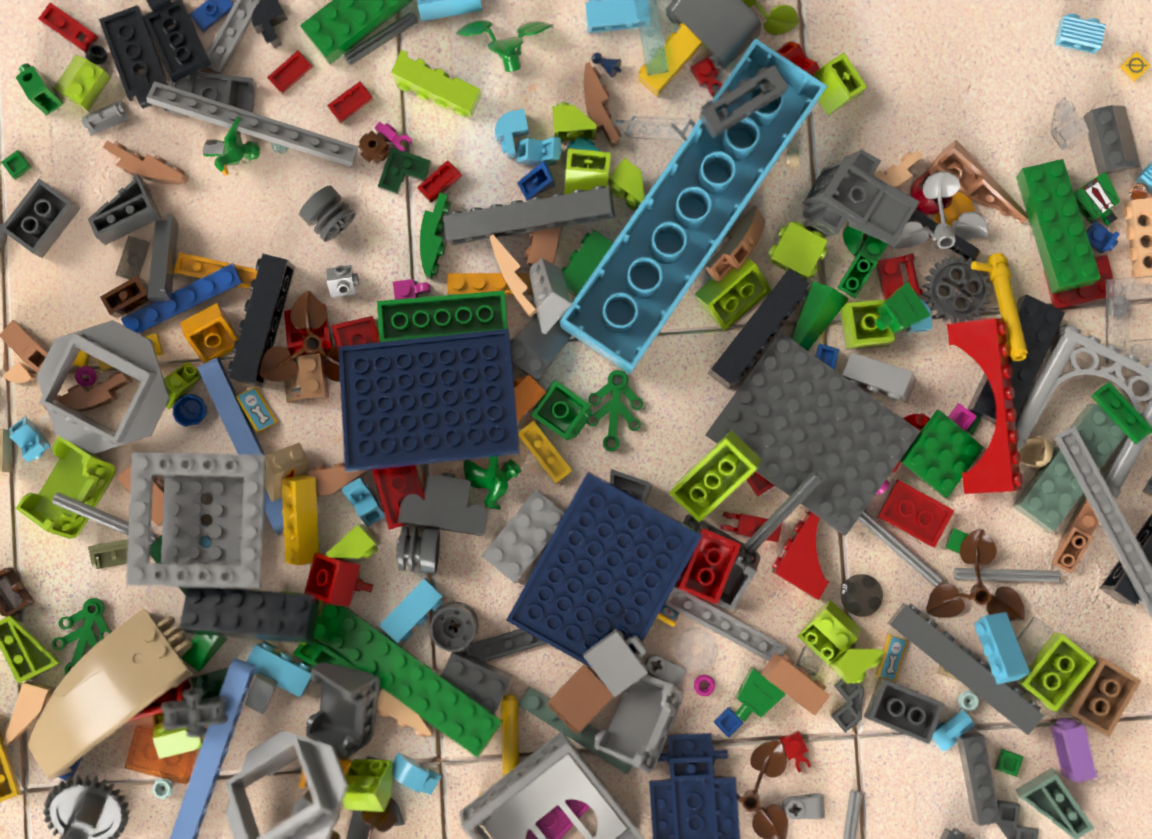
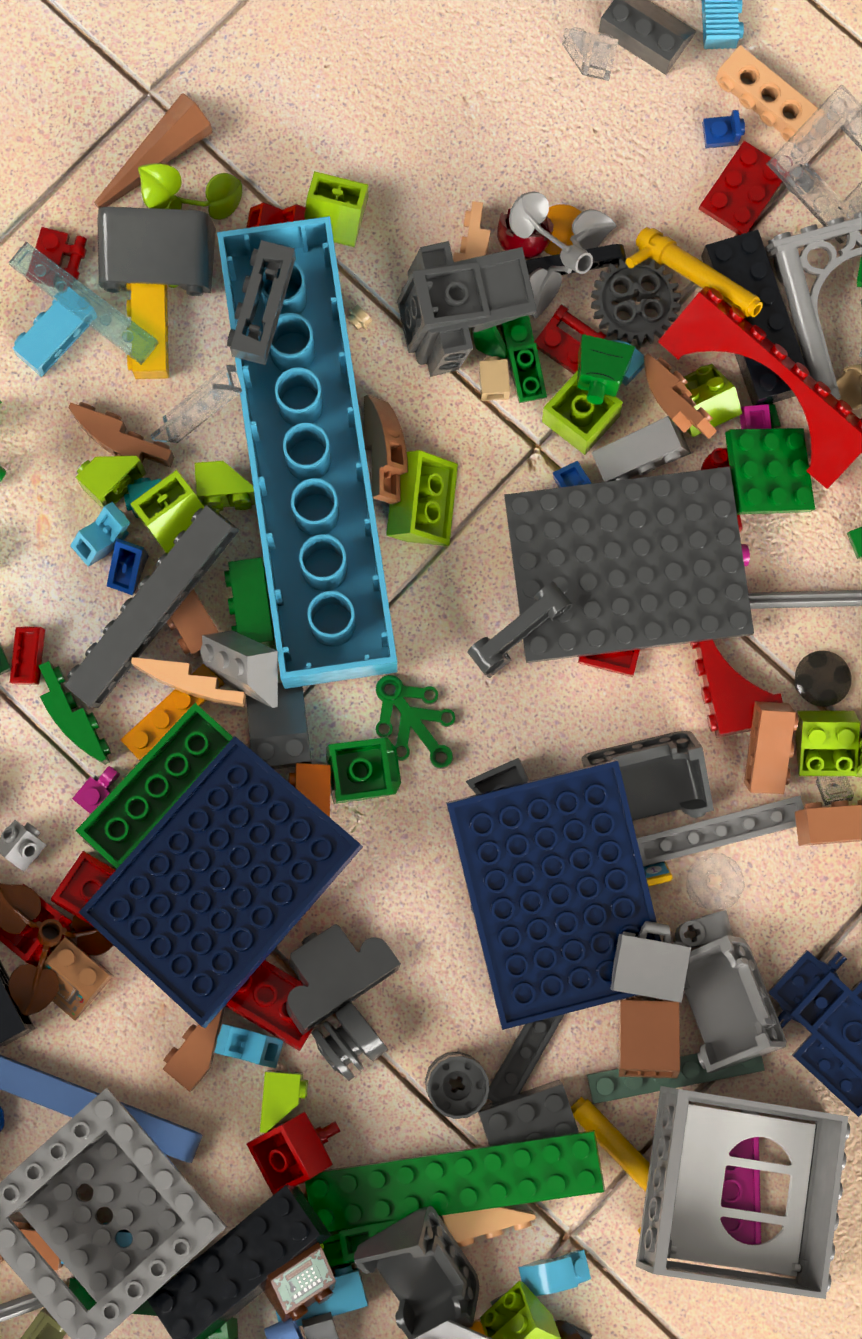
camera: 50 degrees left, 5 degrees down
(256, 410) = (51, 1056): slope -> none
(273, 653) = (300, 1283): none -> slope
(284, 464) = (142, 1088): tan slope -> none
(300, 519) = (200, 1124): yellow brick -> none
(412, 611) = (400, 1110): medium azure brick -> none
(491, 478) = (357, 901): green animal -> none
(508, 126) = (49, 535): medium azure brick -> none
(524, 536) = (442, 928): light grey brick -> none
(544, 452) = (384, 827): yellow plate -> none
(611, 65) = (93, 388): dark blue piece -> none
(690, 413) = (492, 653): none -> dark grey piece
(705, 73) = (196, 311): red plate -> none
(709, 567) = (652, 787): red slope -> none
(711, 685) = (764, 906): dark pink plate -> none
(715, 476) = (574, 692): lime brick -> none
(728, 722) = (813, 924): blue tile -> none
(749, 525) = (657, 708): red hinge -> none
(757, 695) = (815, 870): green torso -> none
(761, 325) = (481, 511): black brick -> none
(783, 512) = (673, 666): dark grey axle -> none
(795, 606) = (770, 747): none -> nougat brick
(798, 249) = (448, 401): lime brick -> none
(817, 313) = (523, 445): green wedge -> none
(835, 261) = (494, 379): none -> tan brick
(915, 513) = (799, 551): red plate -> none
(926, 363) = (675, 398): none -> nougat slope
(942, 379) = (714, 394): none -> lime slope
(976, 181) = (555, 181): nougat wedge -> none
(1057, 226) = (673, 155): green brick -> none
(1097, 199) = (685, 98): torso -> none
(1137, 194) = (718, 60): clear orange hinge -> none

